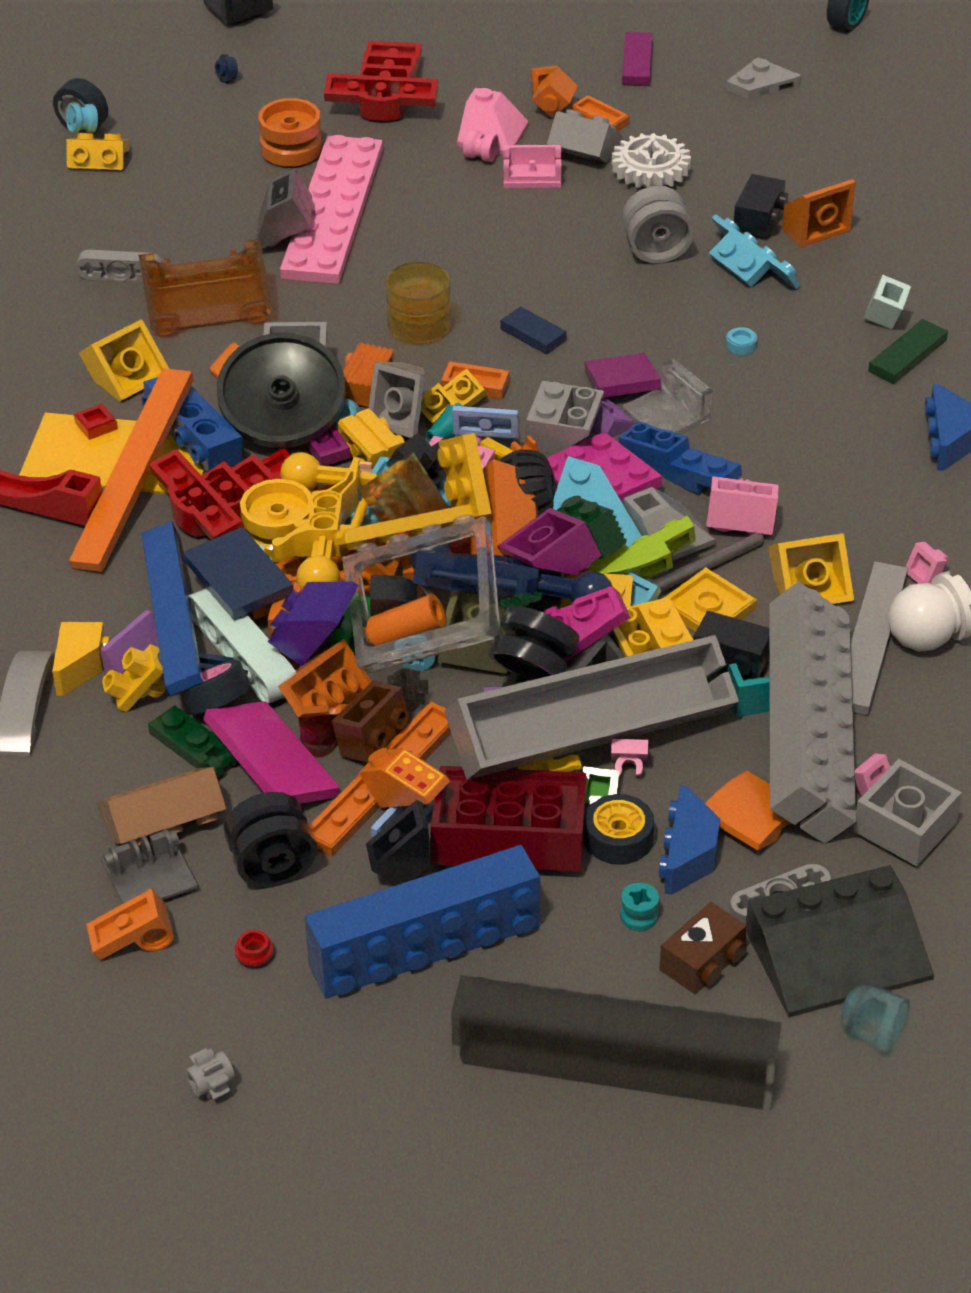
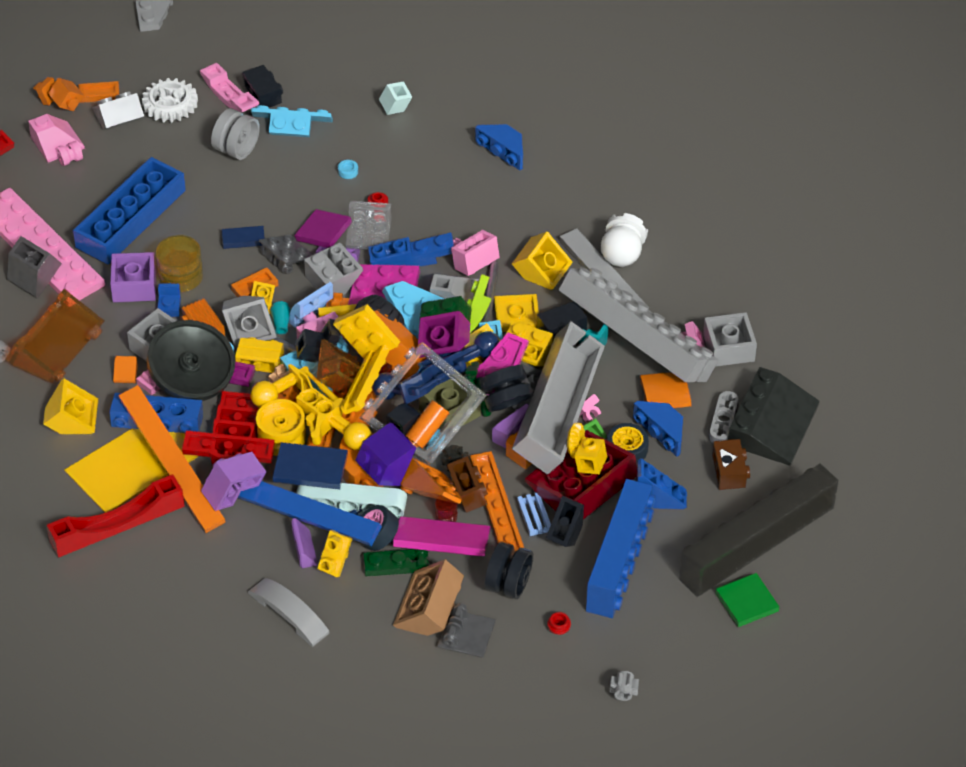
camera: 50 degrees left, 5 degrees up
(78, 654) = (283, 566): yellow slope -> none
(95, 421) = (102, 452): red tile -> none
(137, 920) = (501, 656): orange plate -> none
(144, 520) = (230, 478): none -> medium lavender brick
(355, 285) = (133, 277): none -> medium lavender brick
(375, 331) = (169, 299): none -> blue bracket
(401, 778) = (524, 496): orange slope -> none
(452, 227) = (129, 210): none -> blue brick
(499, 1115) = (747, 600): none -> green tile
(526, 791) = (591, 455): none -> yellow brick
(527, 751) = (574, 438): none -> yellow gear
(532, 166) = (114, 146): bright pink hinge -> none
(549, 364) = (284, 251): none -> flat silver hinge
(570, 897) = (666, 491): none -> blue slope
(637, 58) = (70, 43): magenta tile -> none
(639, 906) = (677, 472): teal wheel -> none
(724, 390) = (378, 197): none -> red plate
(727, 186) = (225, 90): none -> bright pink slope
(820, 214) = (296, 70): orange slope -> none
(879, 1010) = (825, 431): clear light blue helmet -> none
(908, 351) = (429, 117): dark green tile -> none
(925, 563) = (585, 220): bright pink tile -> none

